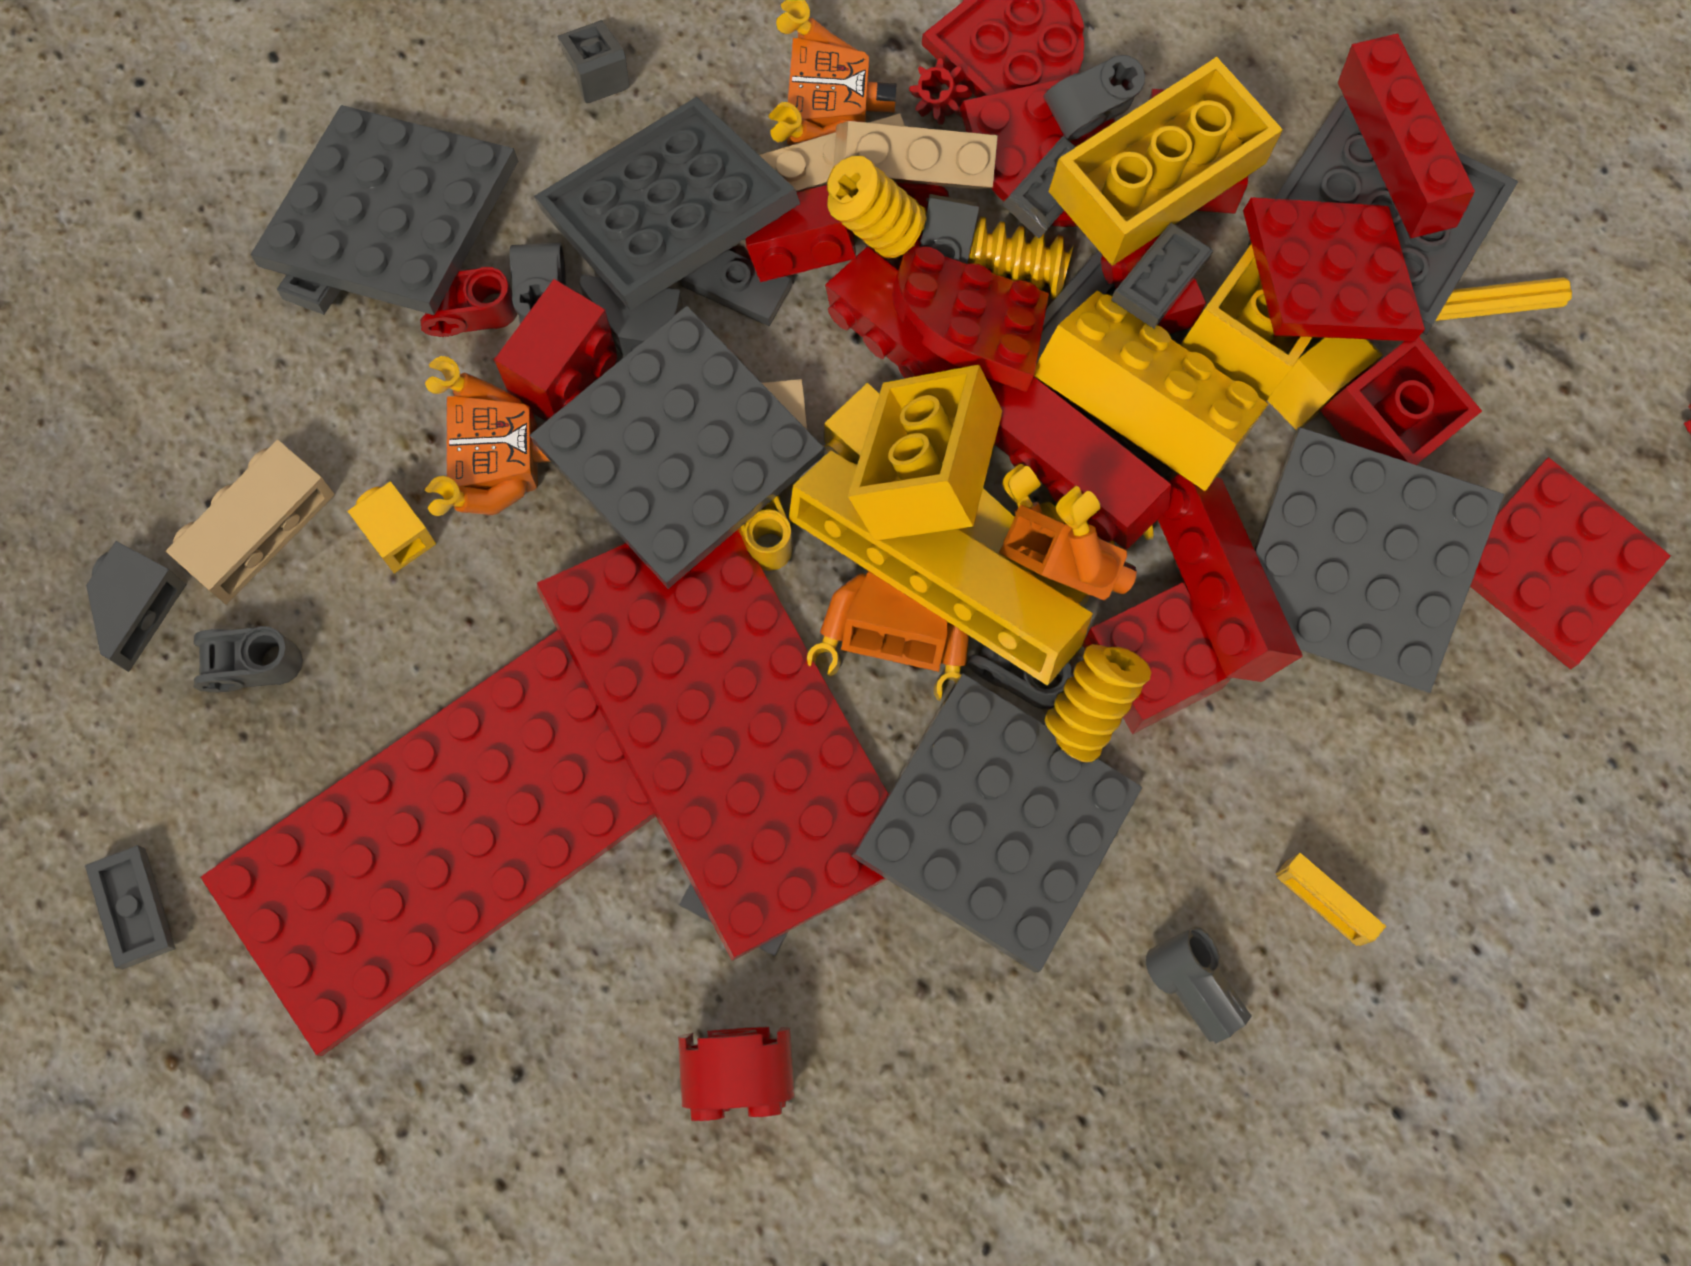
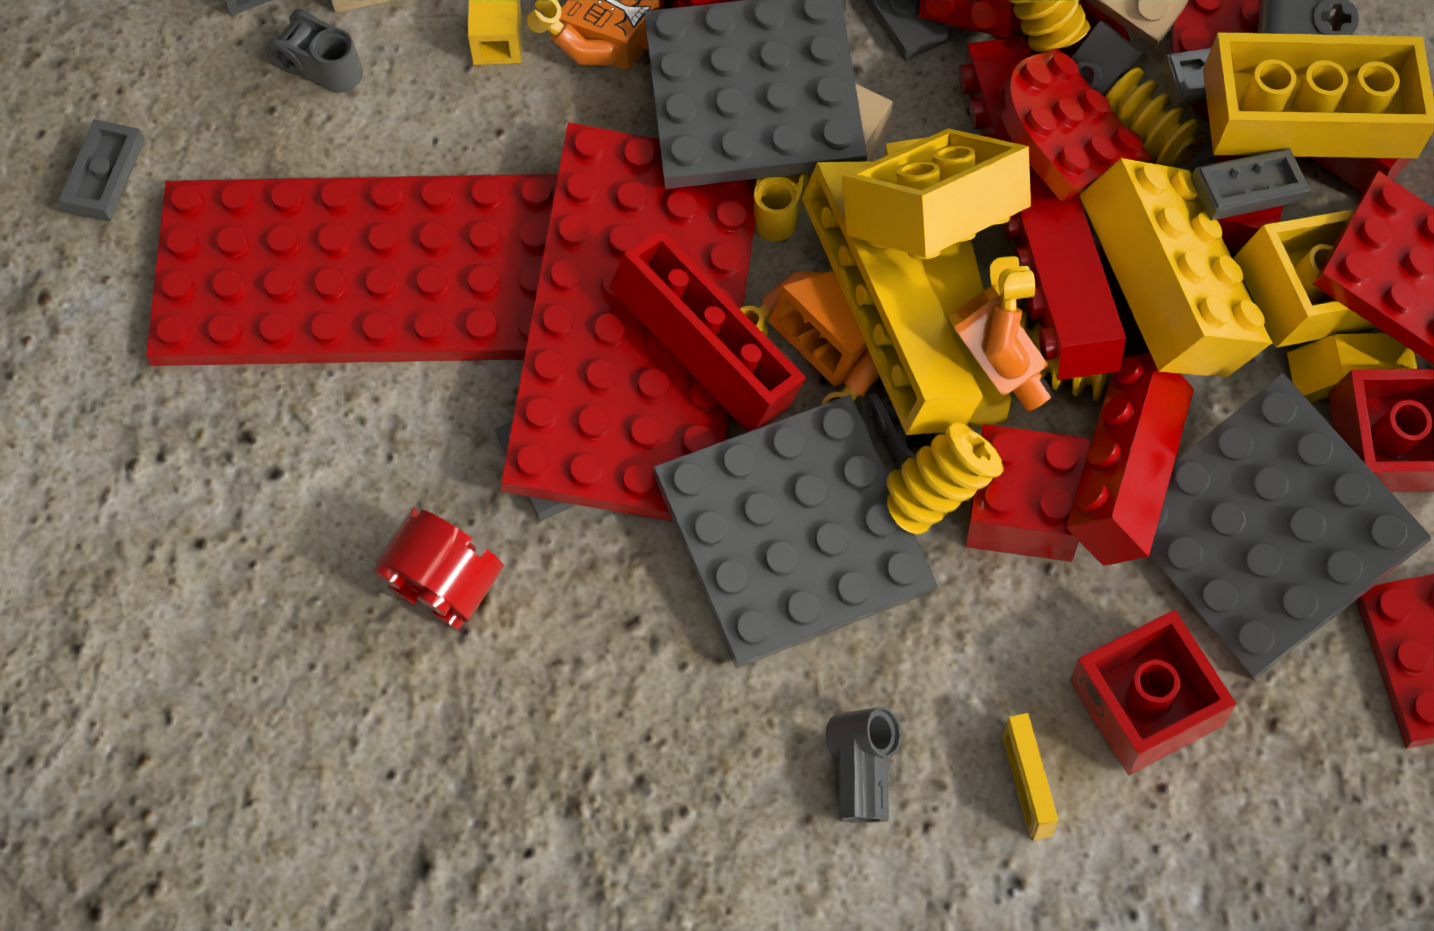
camera: 40 degrees right, 10 degrees down
(812, 703) = (706, 331): none -> red brick
(1375, 765) = (1152, 692): none -> red brick

